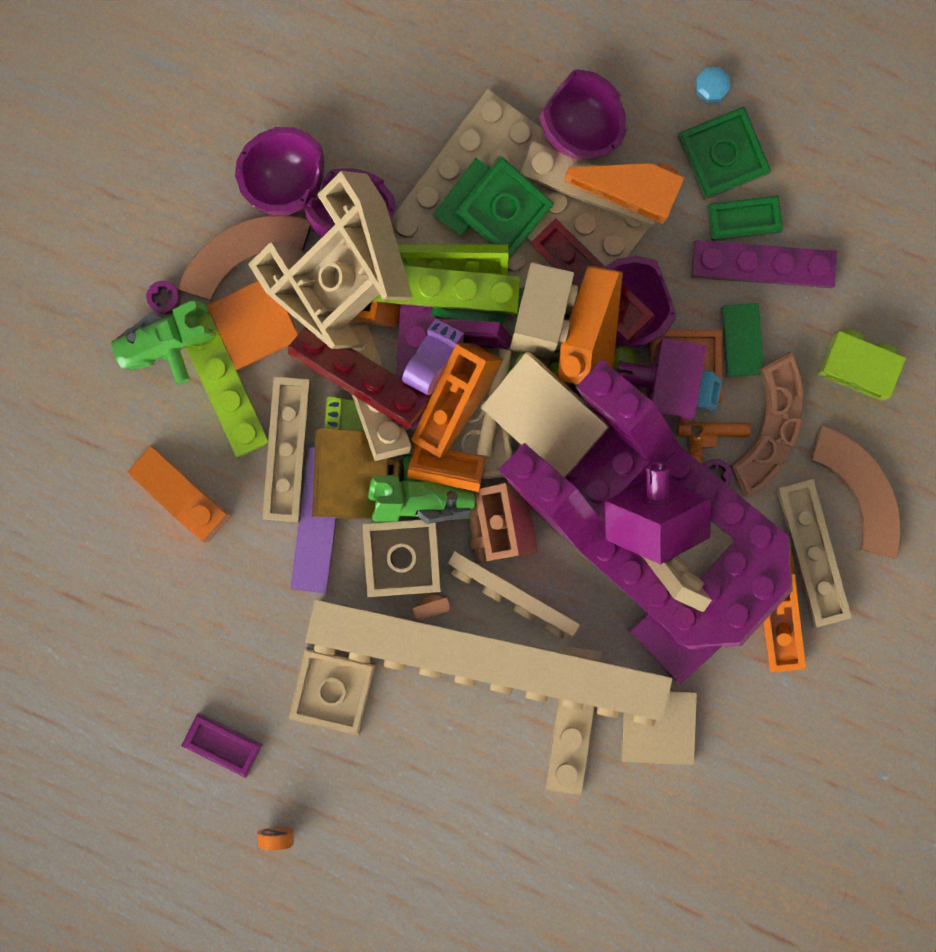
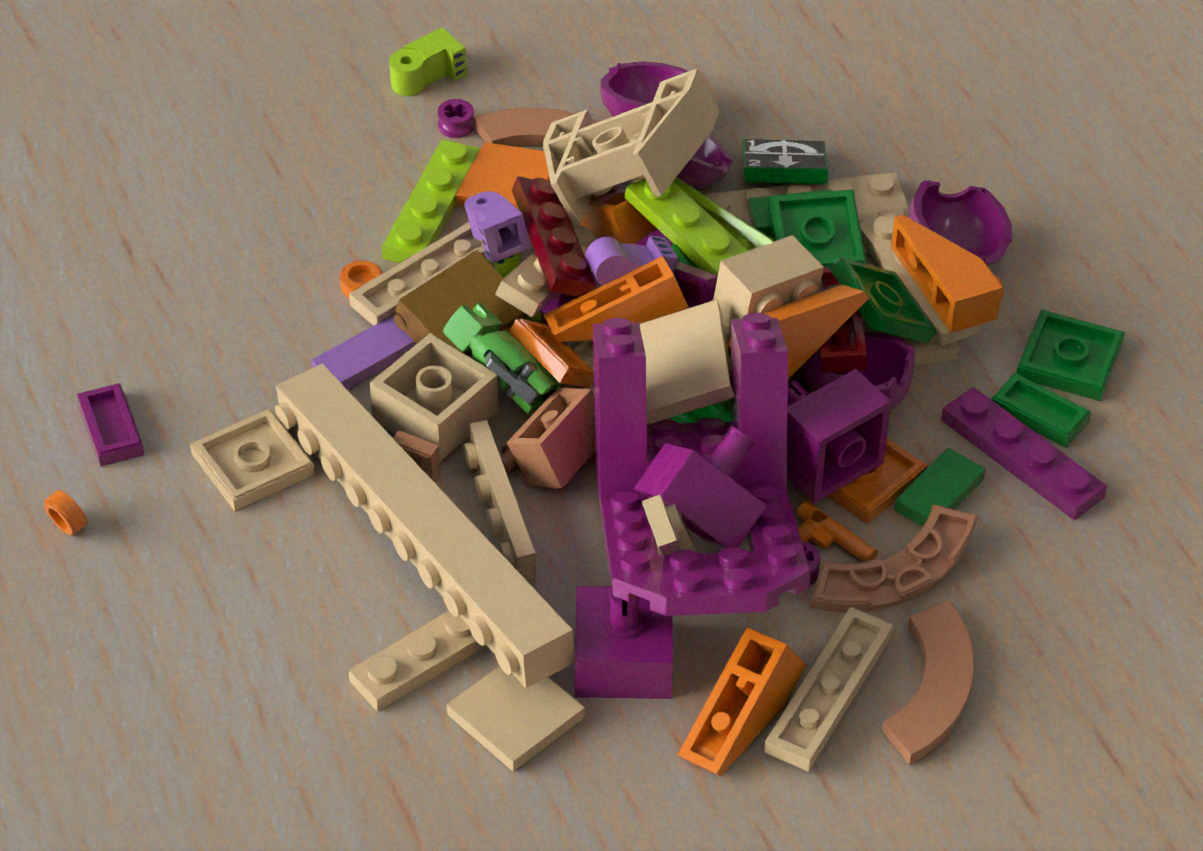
camera: 40 degrees right, 40 degrees down
(94, 268) = (426, 62): none -> lime leg
(163, 338) = (424, 126): bright green piece -> none
(179, 495) = (303, 244): orange slope -> none
(247, 492) = (357, 274): none -> orange tile
(301, 388) = (496, 225): none -> medium lavender leg
(413, 147) = (784, 161): none -> tile
(603, 237) = (889, 304): none -> green tile
(709, 392) = (859, 479): medium azure tile -> none
(712, 84) = (1110, 303): medium azure tile -> none
(861, 364) = (1038, 579): lime brick -> none

